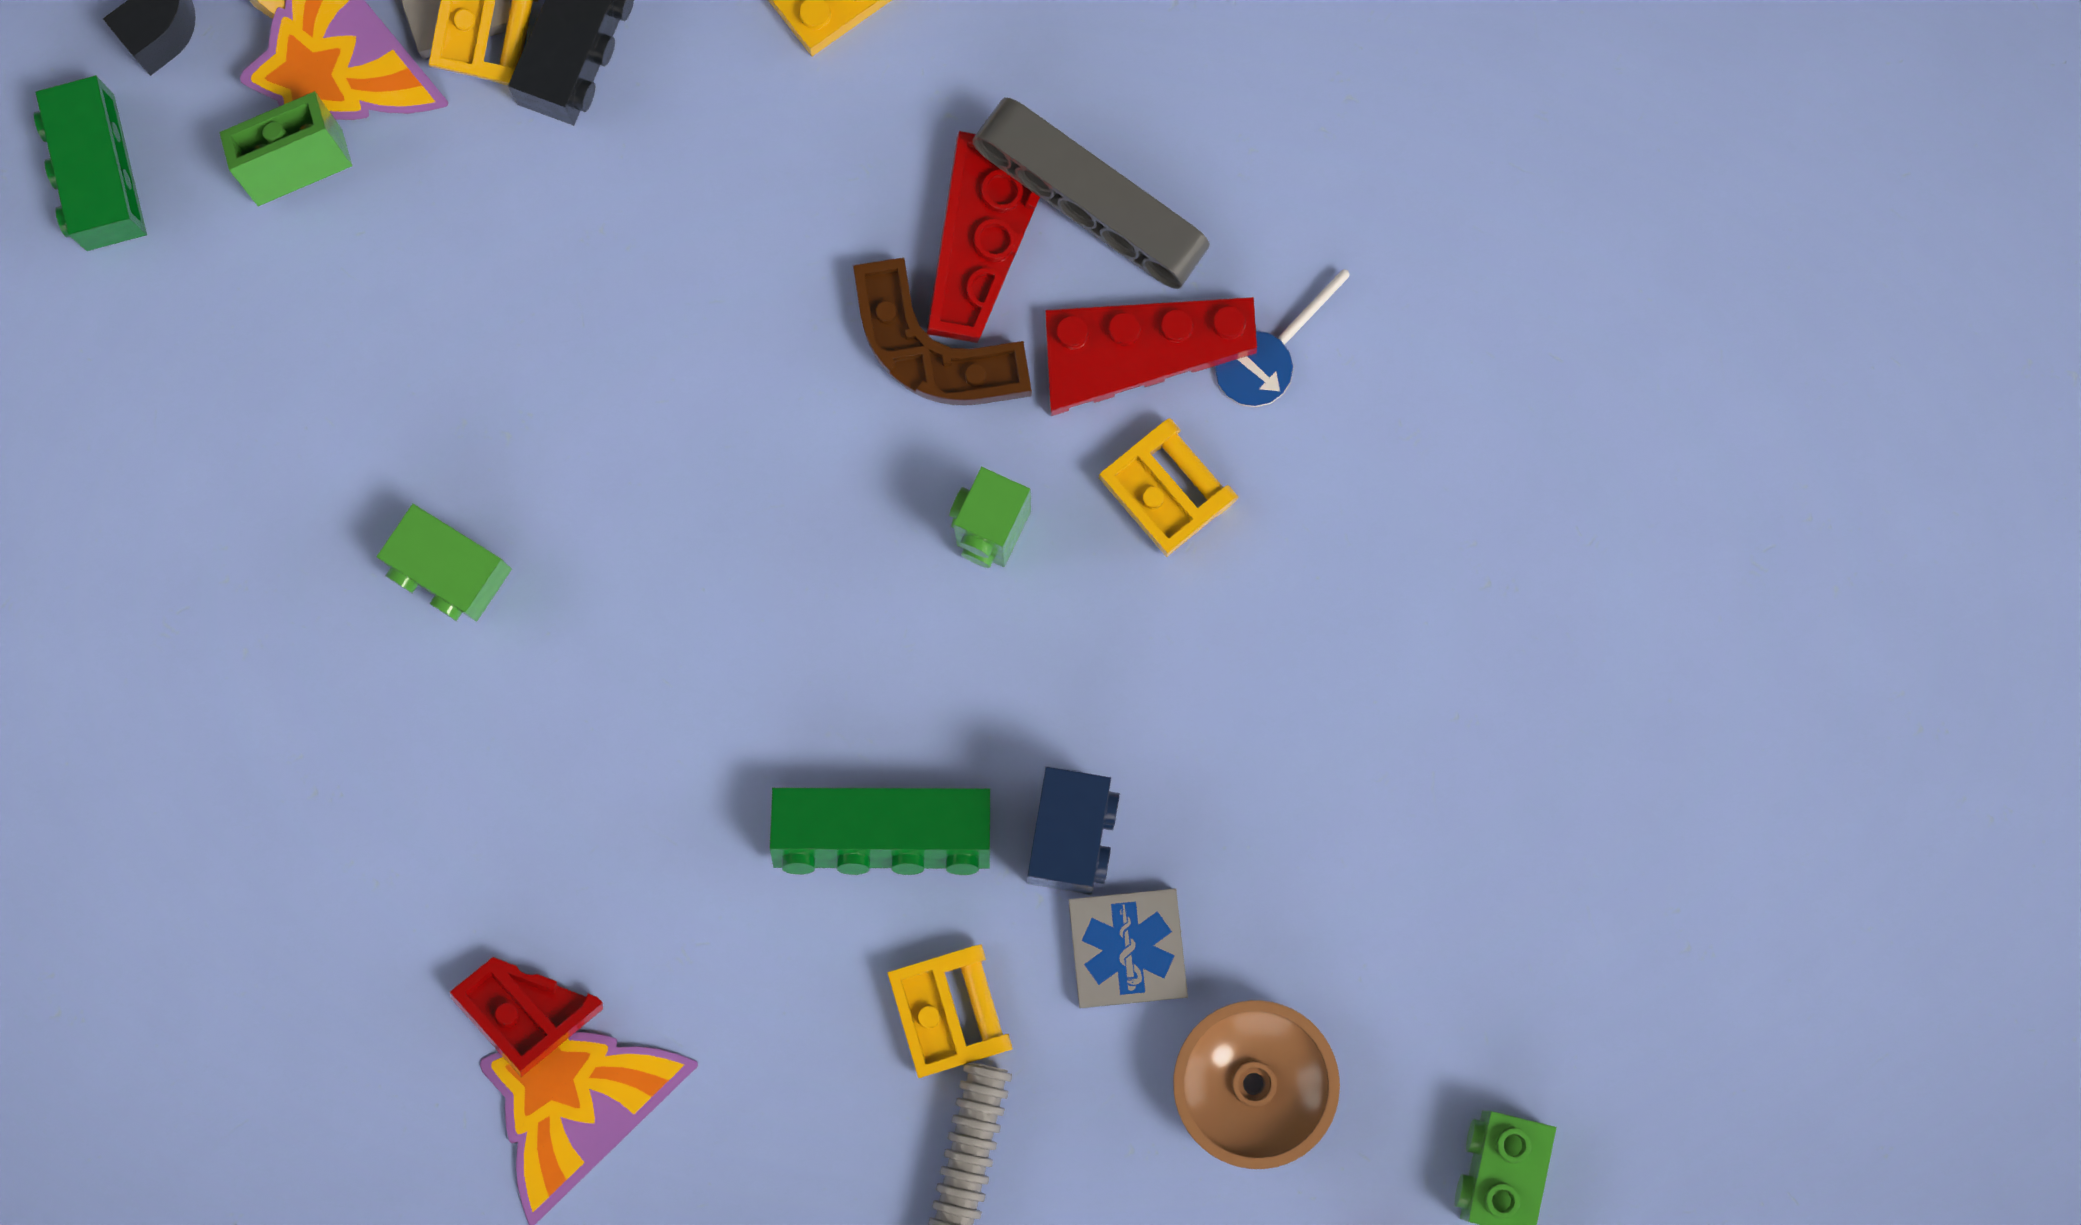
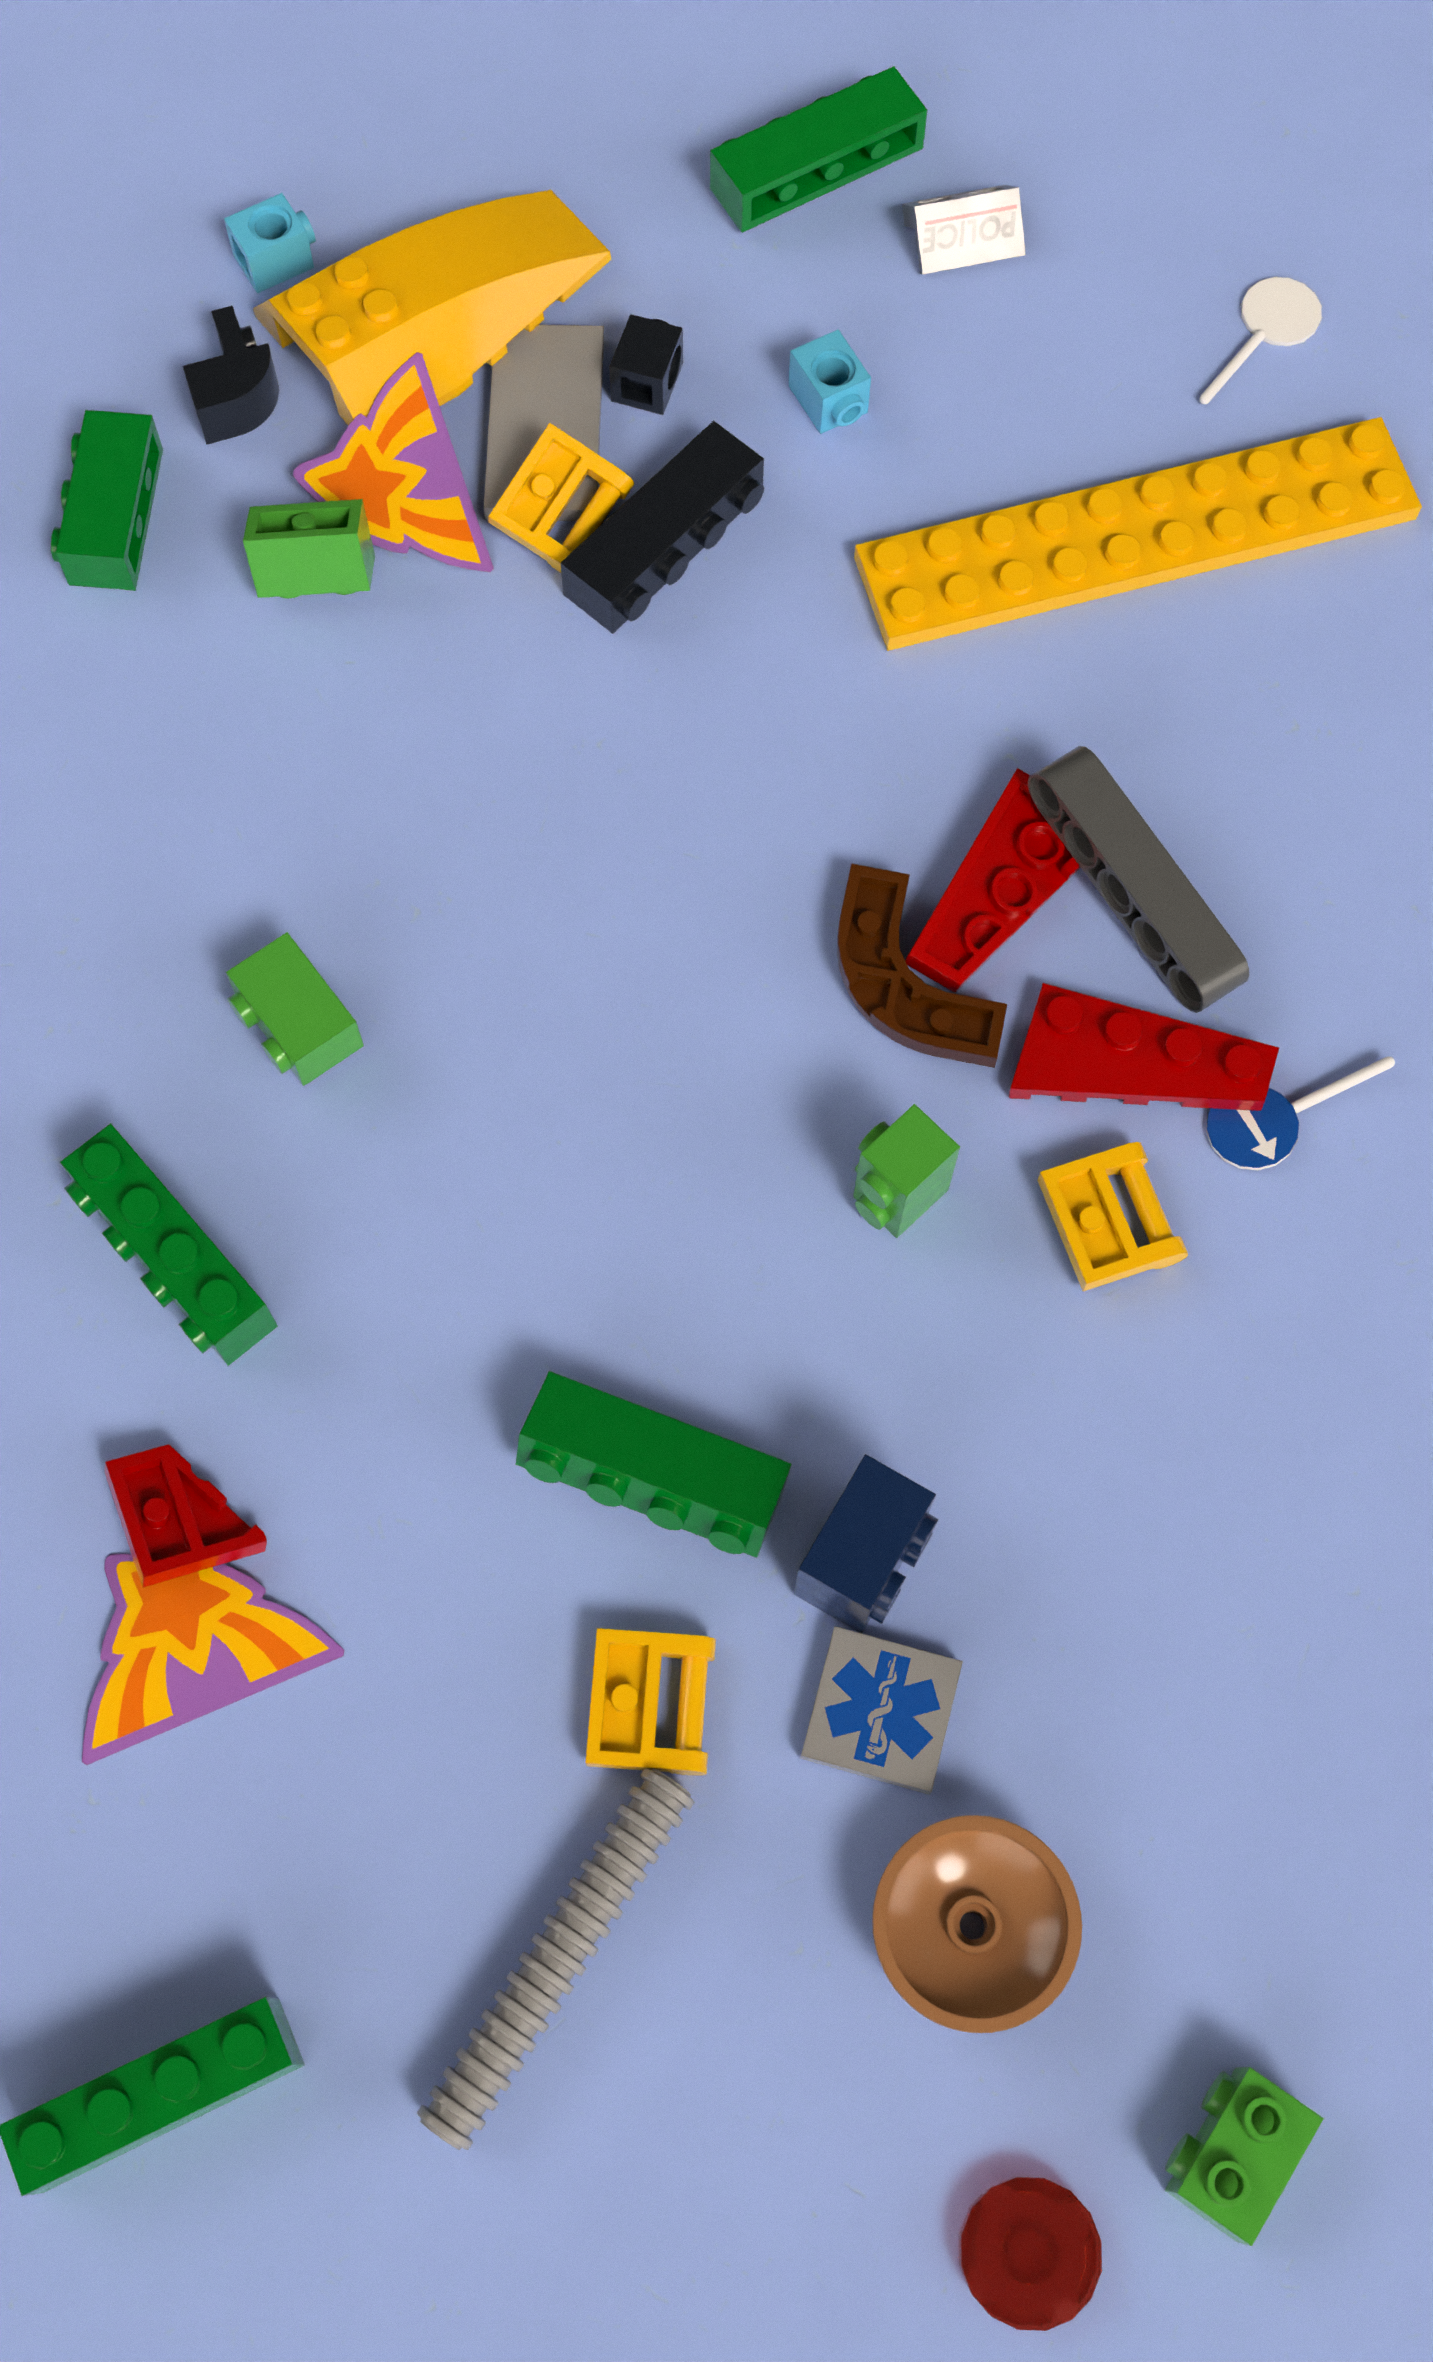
camera: 20 degrees right, 10 degrees down
(423, 797) = (170, 1245): none -> green brick

